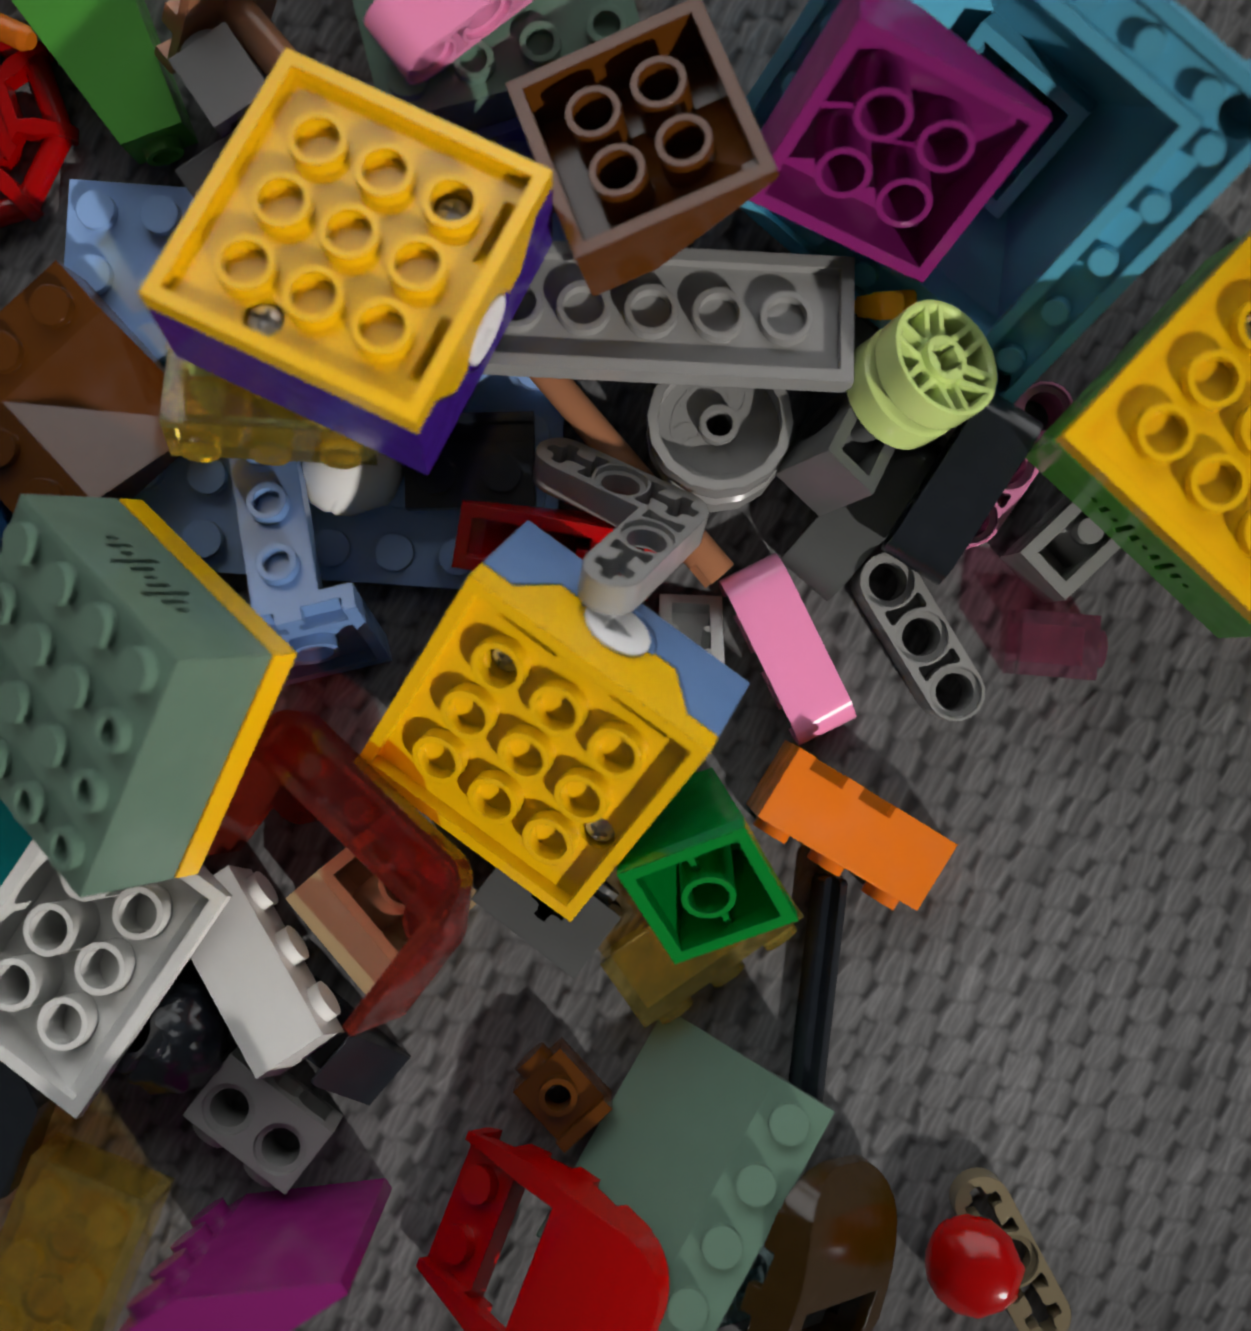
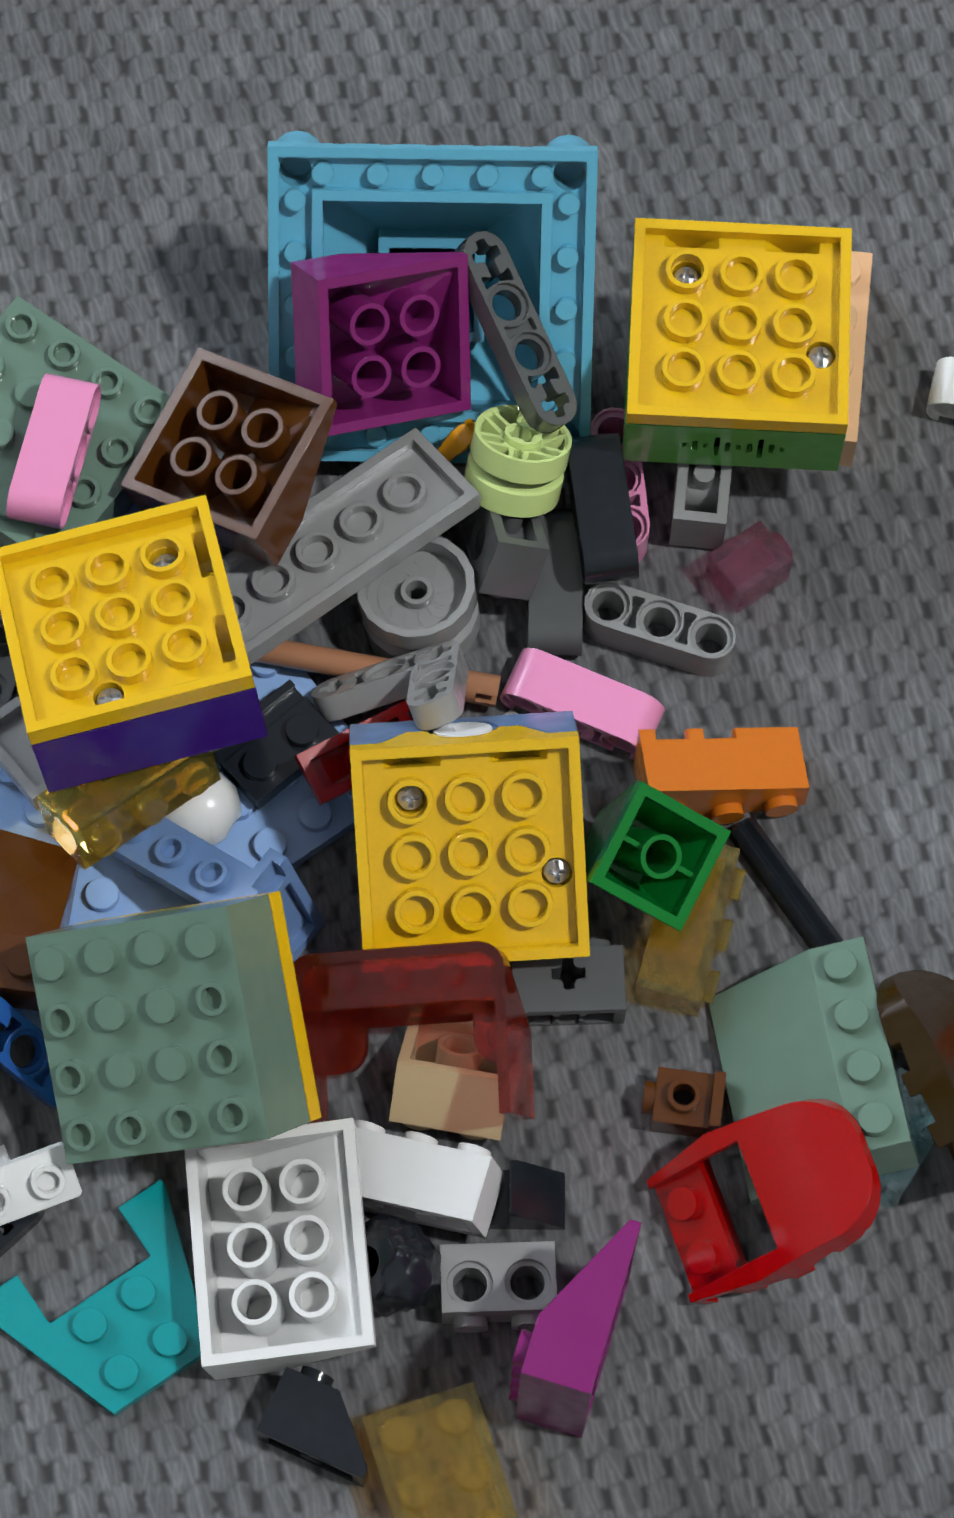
camera: 40 degrees left, 20 degrees down
(1040, 248) = (523, 329): none -> dark grey beam

